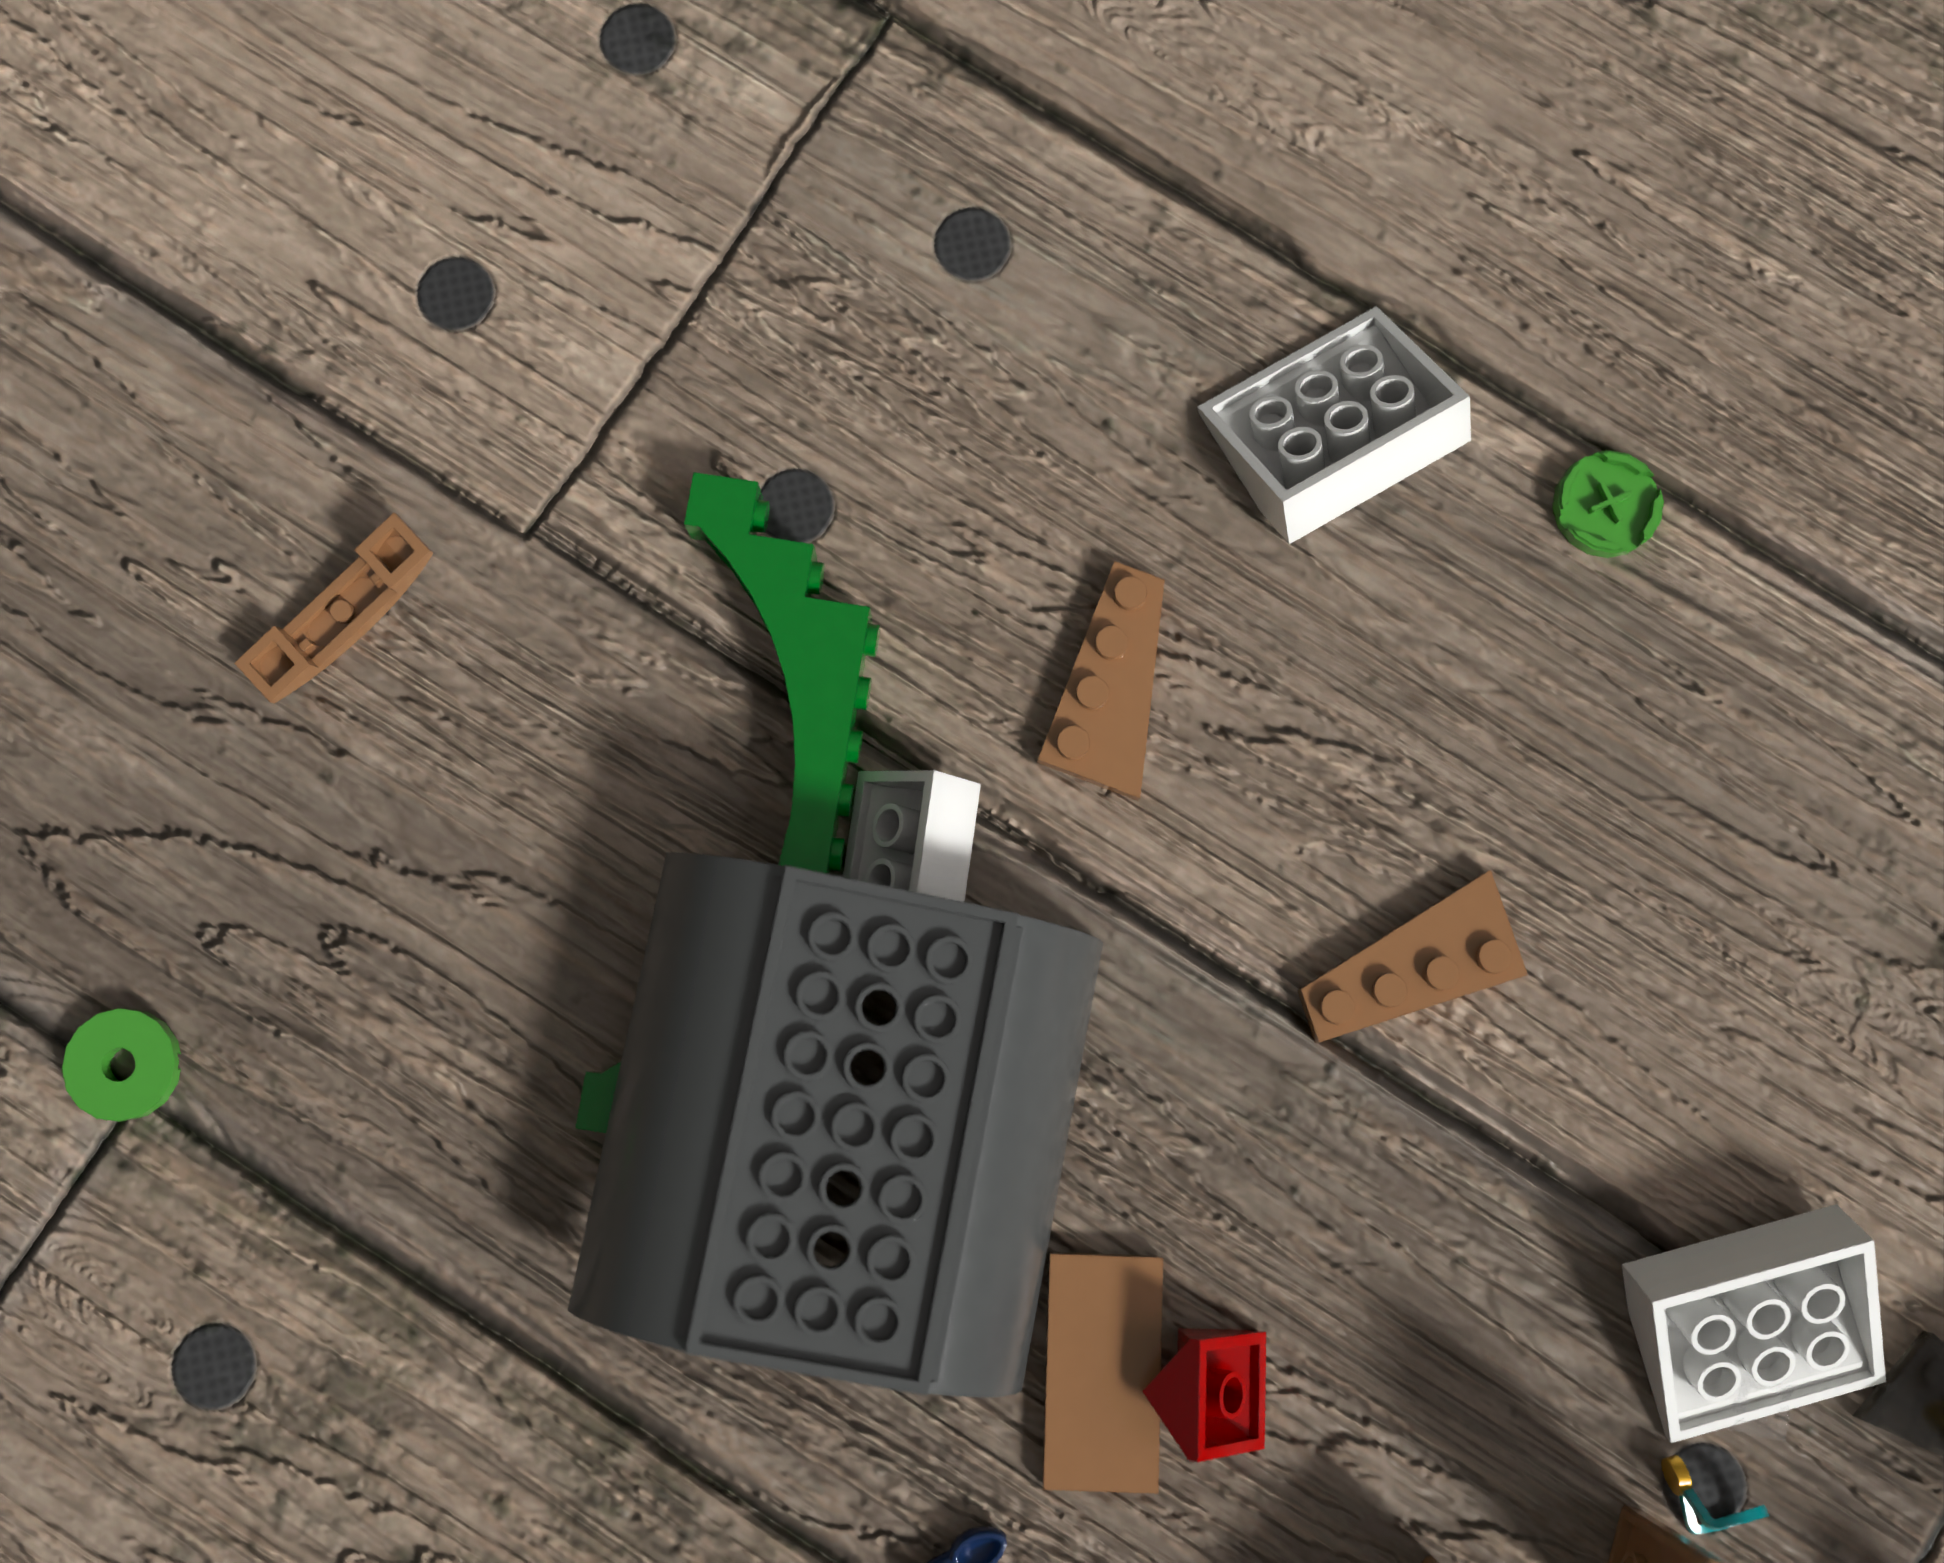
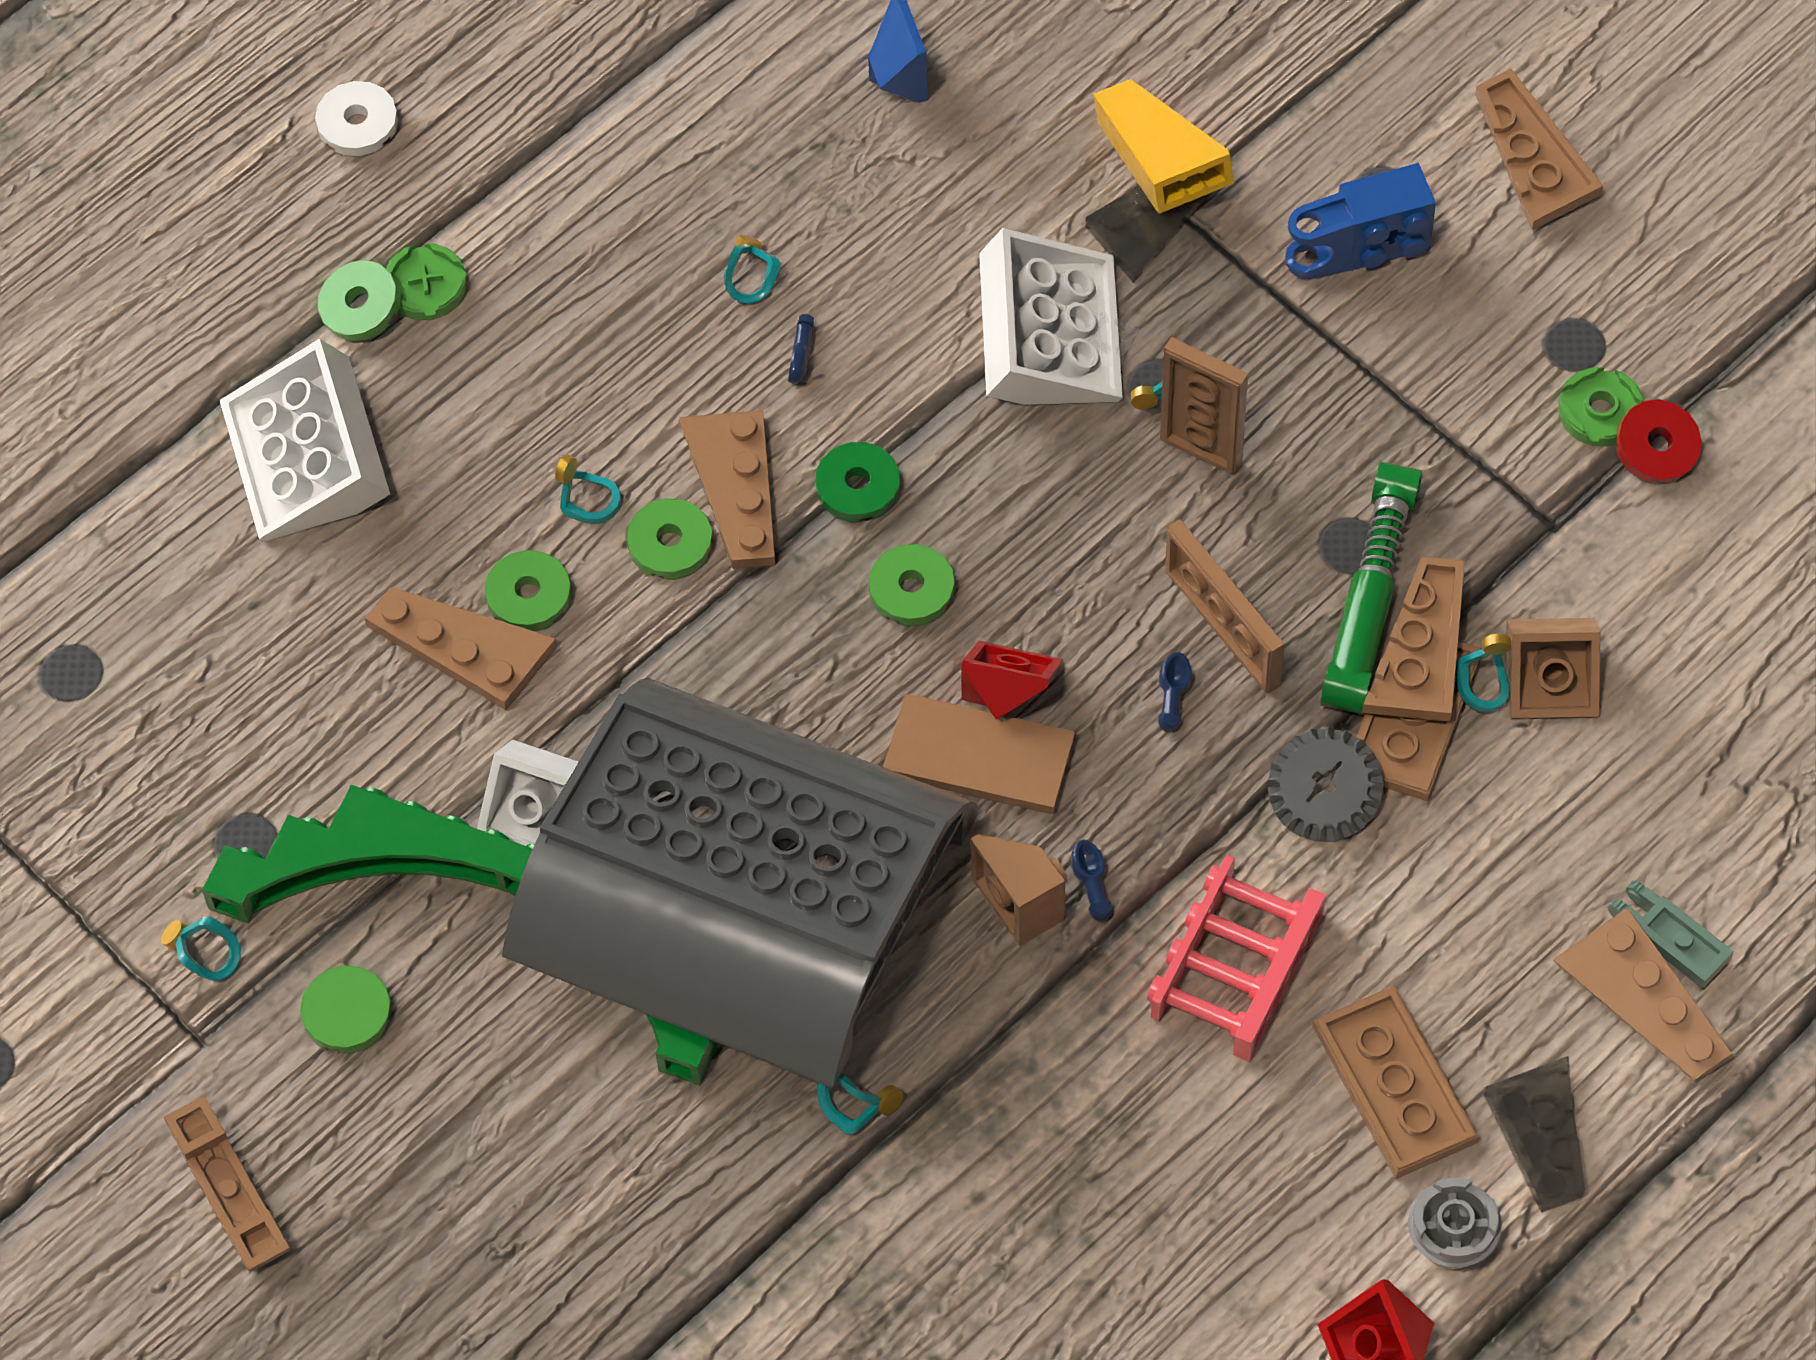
camera: 70 degrees left, 20 degrees down
(572, 1343) = (885, 1102): none -> teal piece
(595, 681) = (345, 1009): none -> bright green tile
(647, 460) = (177, 932): none -> teal piece
(900, 1487) = (1019, 885): none -> medium nougat slope
(1224, 724) = (524, 569): none -> bright green tile
(1348, 896) = (669, 517): none -> bright green tile
(1357, 1227) = (906, 563): none -> bright green tile
(1366, 751) = (565, 473): none -> teal piece
(1489, 1115) = (857, 460): none -> green tile
(1559, 404) = (344, 286): none -> tile
(1626, 1001) = (801, 349): none -> dark blue piece
(1769, 898) = (744, 245): none -> teal piece
(1845, 339) = (353, 99): none -> white tile

